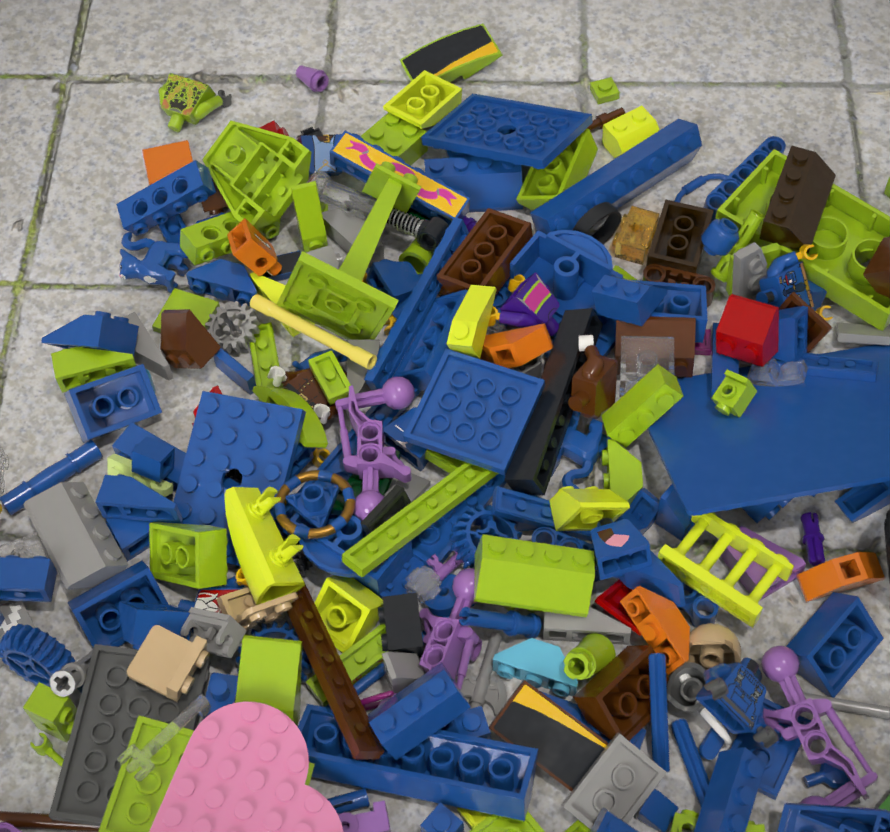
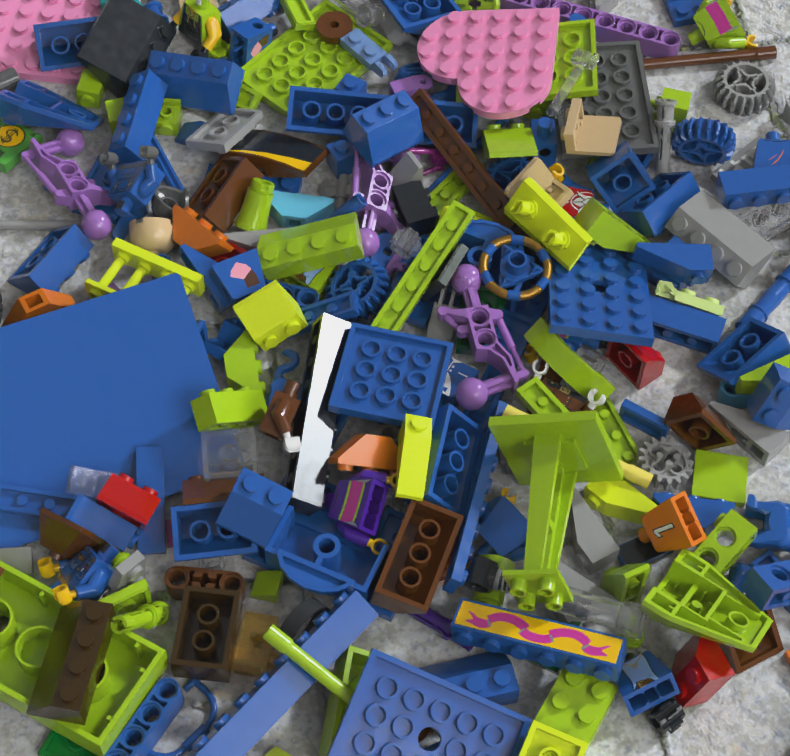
camera: 165 degrees right, 0 degrees up
(152, 459) = (679, 295): blue brick -> none
(219, 630) = (564, 166): light grey hinge -> none
(615, 176) = (286, 646): none -> lime piece
(659, 710) = (194, 183): blue axle -> none
(720, 237) = (161, 614): blue head -> none
(733, 394) = (144, 424): lime brick -> none

